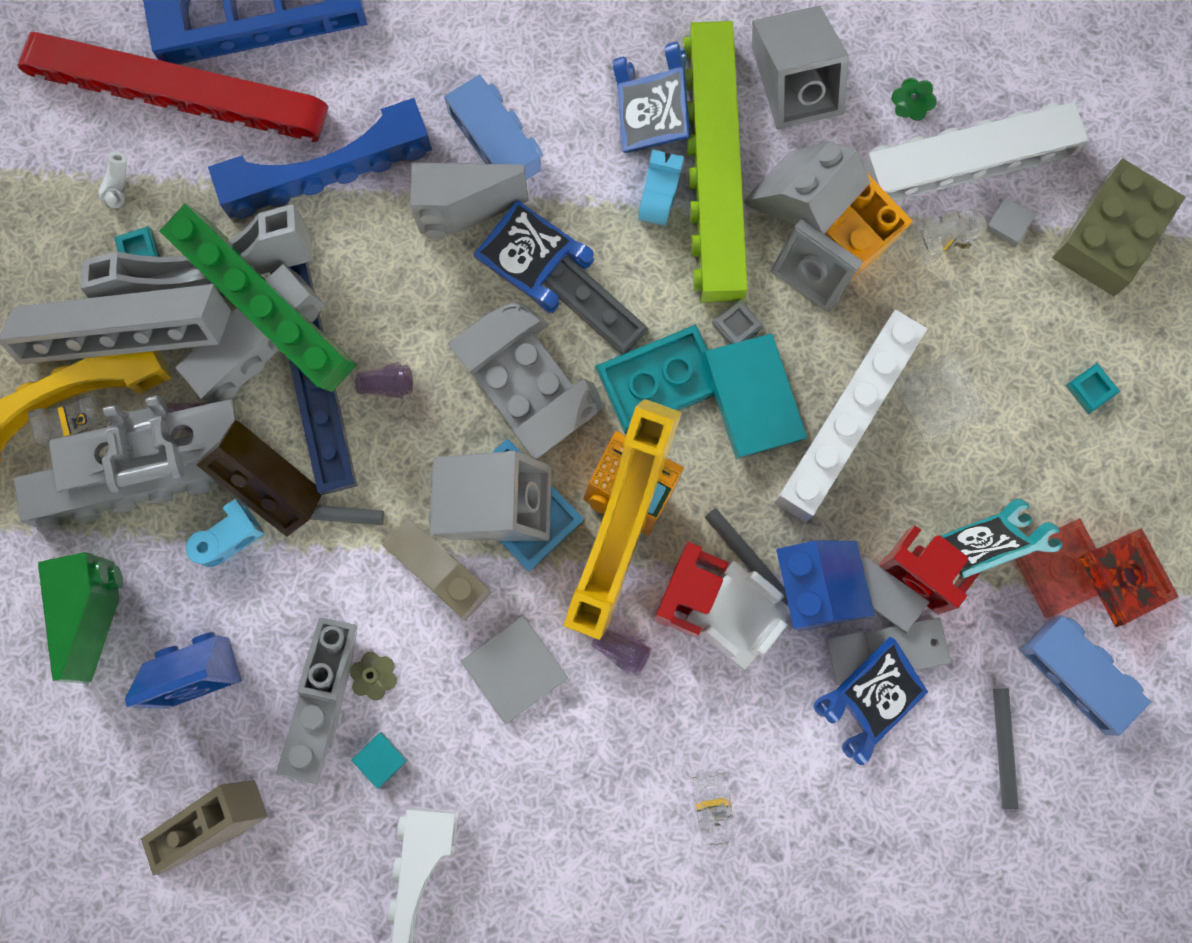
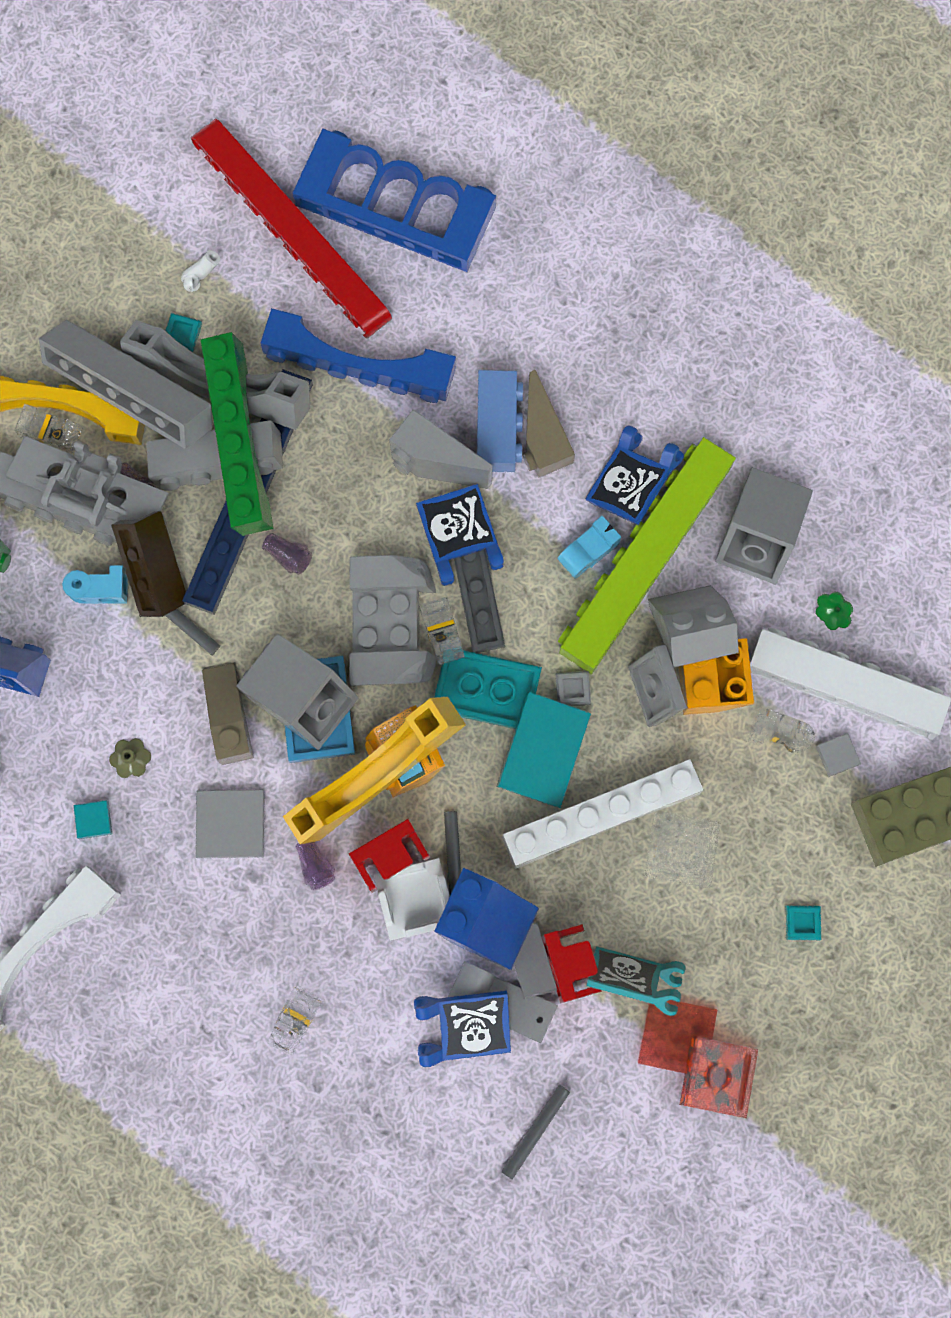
camera: 35 degrees right, 0 degrees up
(319, 701) = (81, 748): light grey slope -> none
(545, 116) = (545, 439): none -> dark tan slope
(583, 352) = (441, 630): none -> clear leg
(1086, 675) = (632, 1122): medium blue brick -> none

